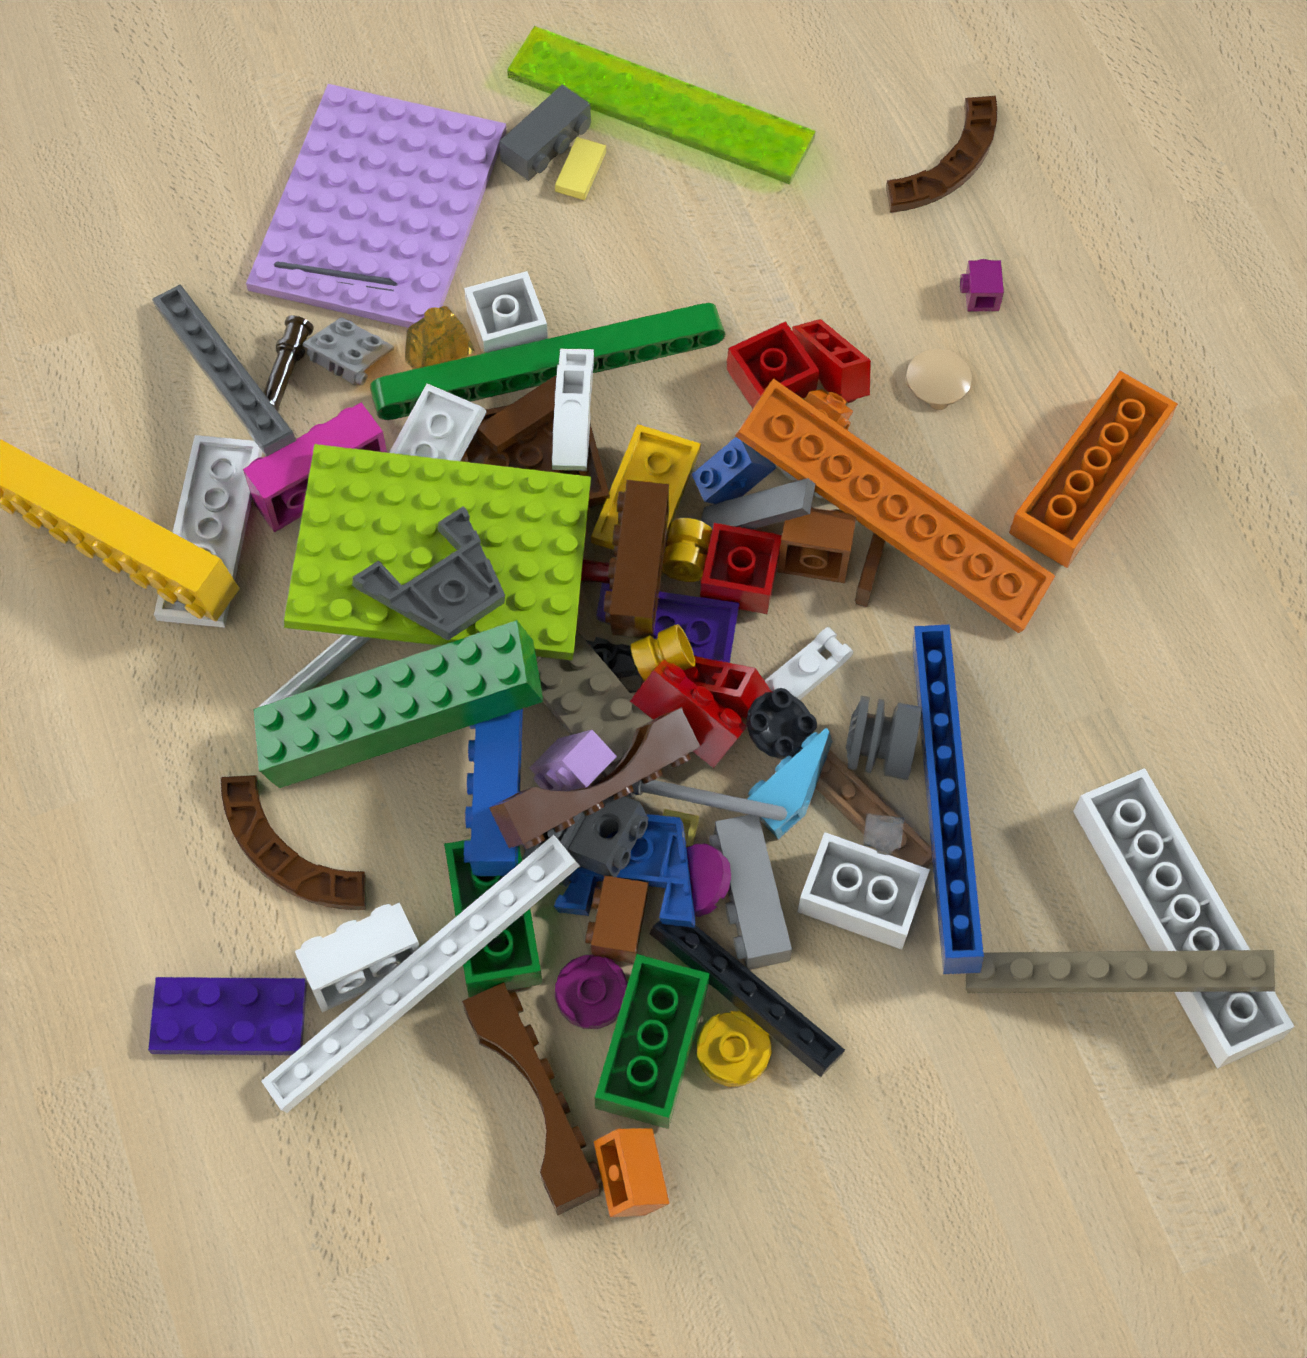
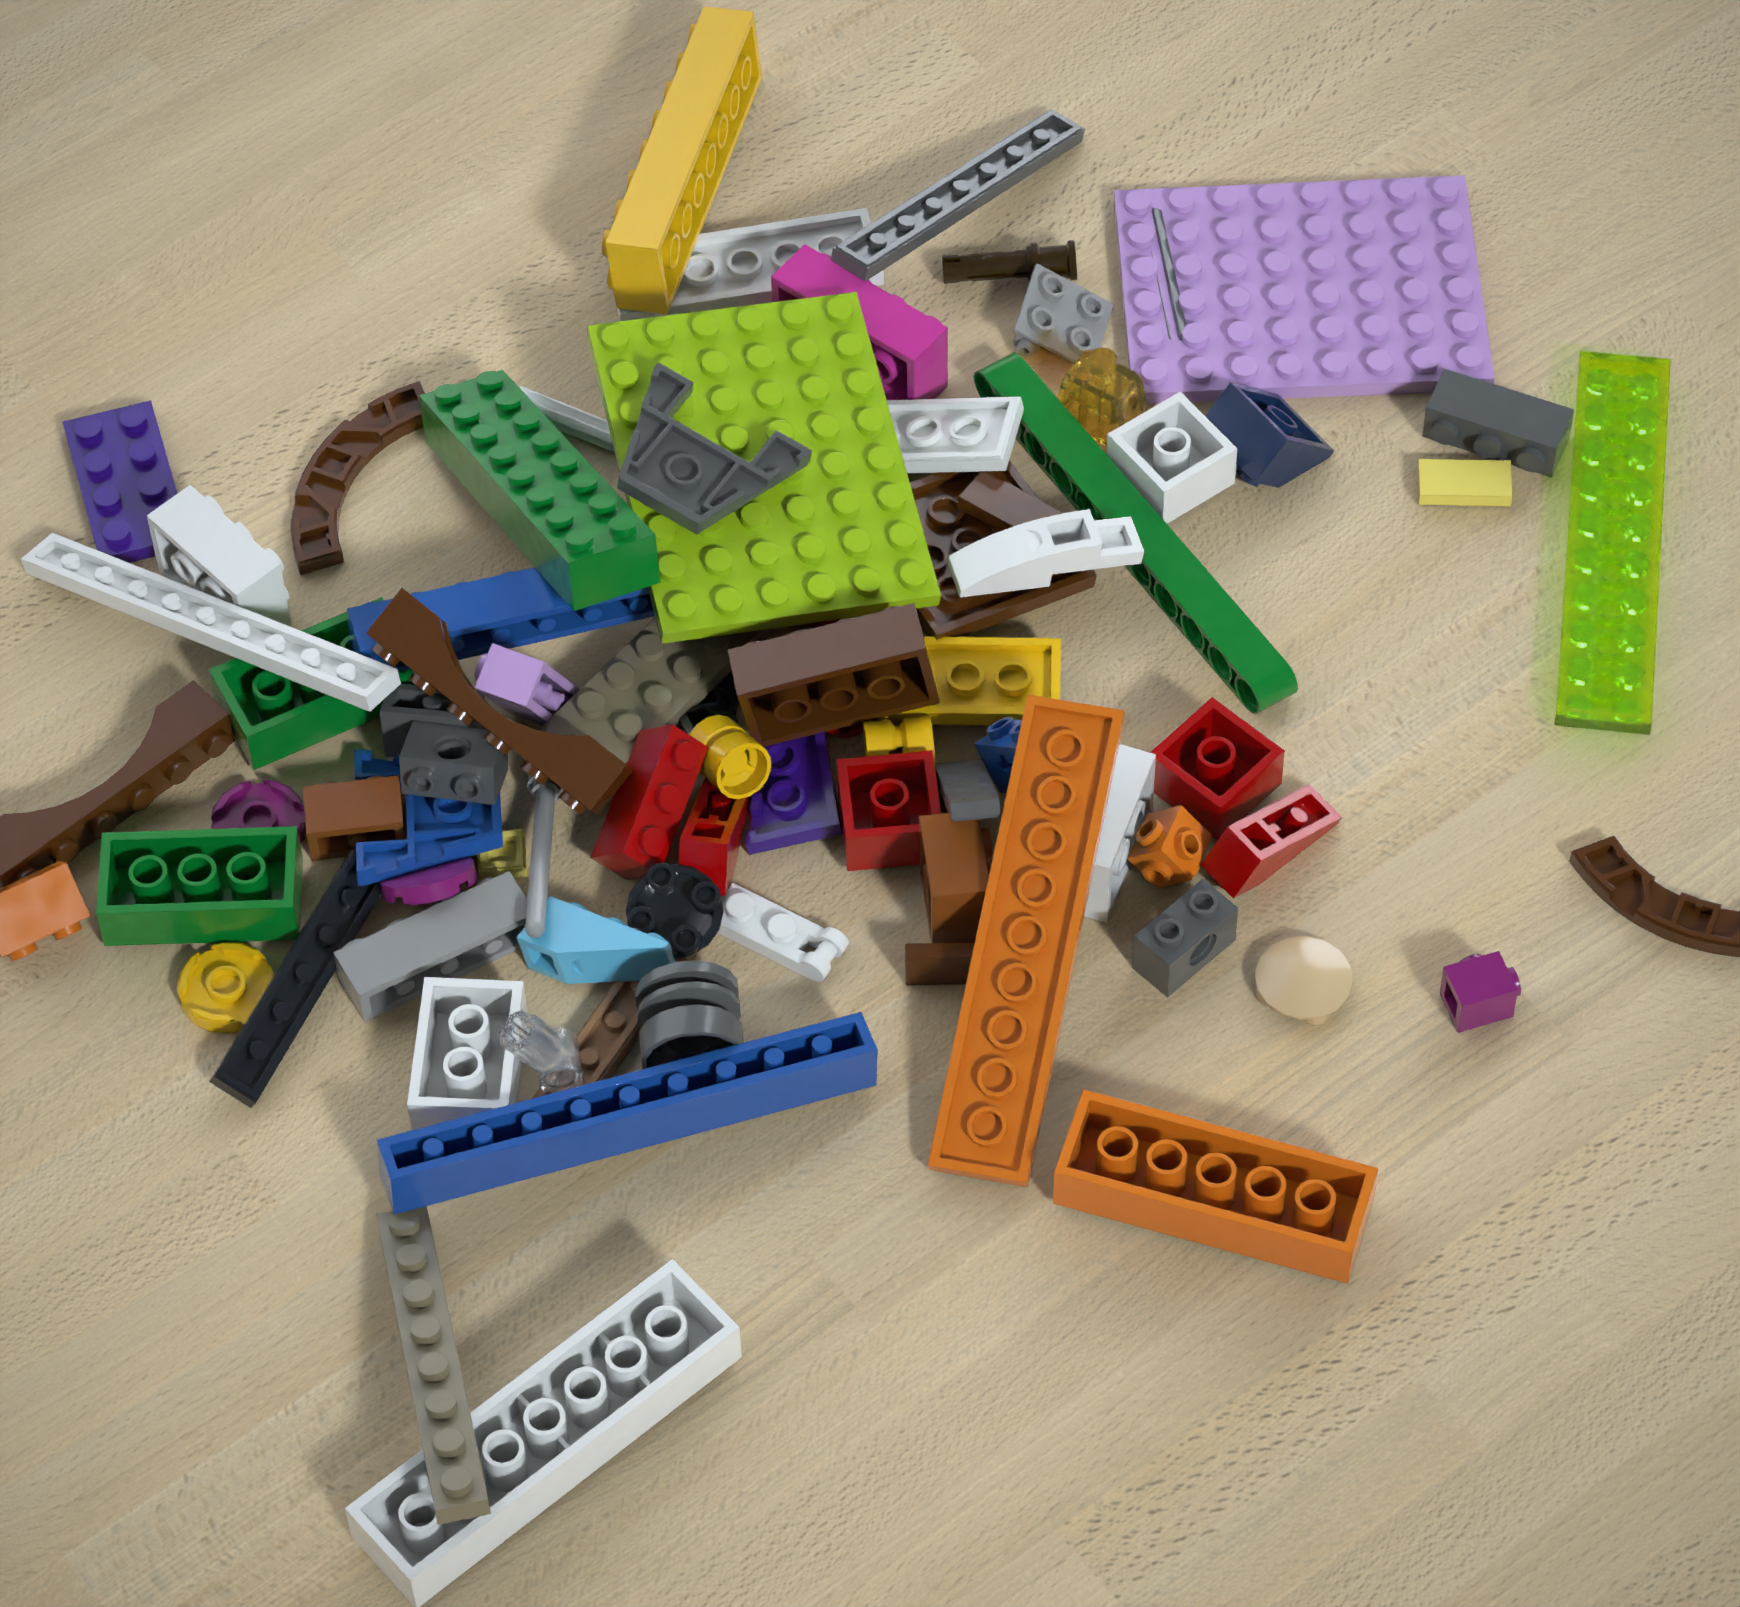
camera: 75 degrees right, 10 degrees down
(504, 258) = (1268, 435): none -> dark blue slope
(895, 428) = (1184, 937): none -> dark grey brick

